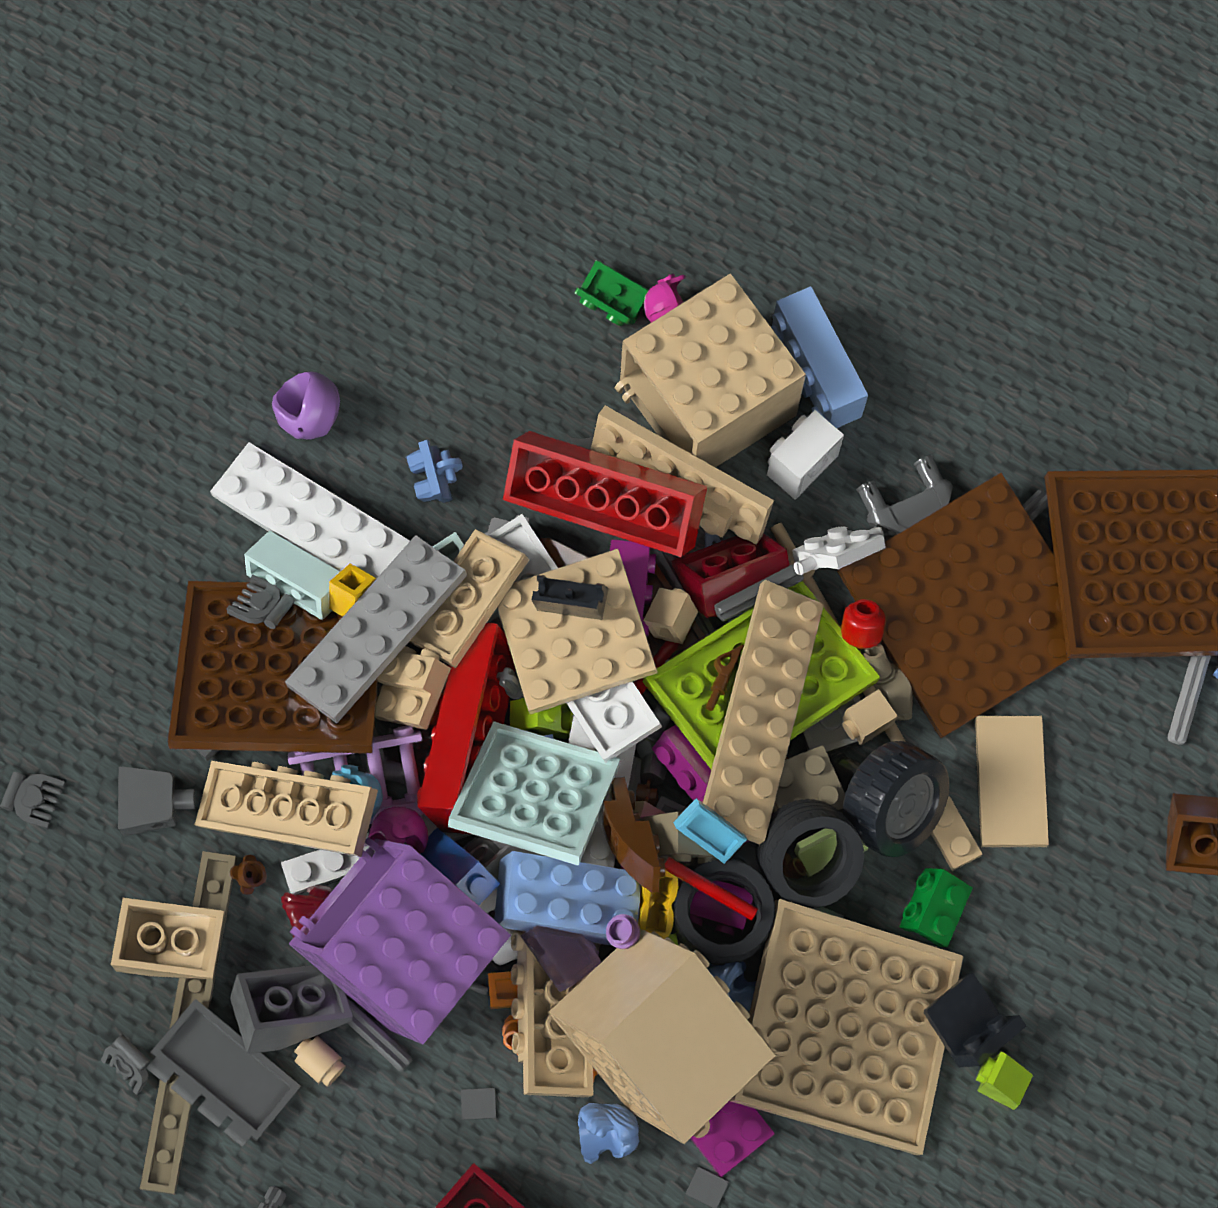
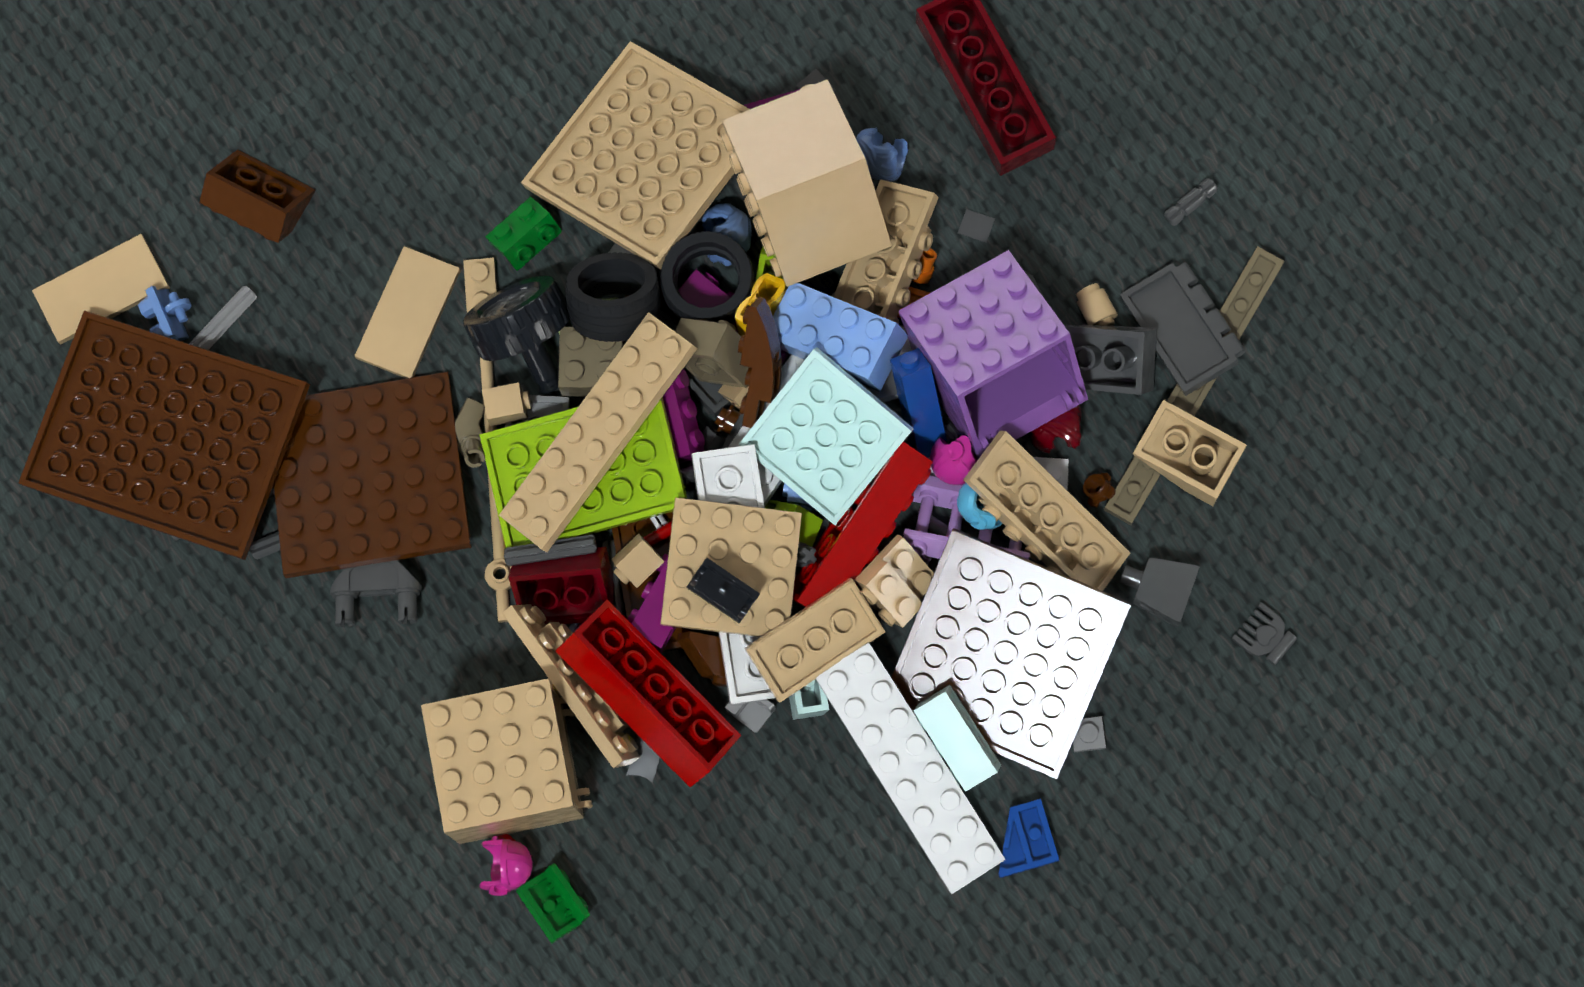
camera: 145 degrees left, 5 degrees up
(128, 1062) = (1259, 366): dark grey piece -> none
(169, 635) = (1089, 735): none -> light grey plate
(195, 516) = (1027, 840): none -> blue wing
(264, 605) = (996, 719): dark grey piece -> none
(307, 405) = (884, 901): medium lavender piece -> none
(348, 588) = (913, 690): yellow brick -> none
(376, 629) = (906, 639): light grey plate -> none
(439, 470) = (787, 793): medium blue hips -> none
(562, 954) = (858, 286): clear purple slope -> none
(623, 931) = (802, 281): medium lavender plate -> none
(710, 830) = (692, 331): medium azure tile -> none
(710, 888) = (712, 291): red bar -> none
(724, 674) = (615, 480): reddish brown hand -> none
(804, 453) = (449, 667): white brick -> none
(818, 351) = (394, 752): light blue brick -> none
(837, 549) = (461, 562): white plate -> none
(863, 624) = (472, 484): red head -> none
(971, 1023) = (540, 120): black bracket -> none
(1003, 1080) = (537, 69): lime slope -> none

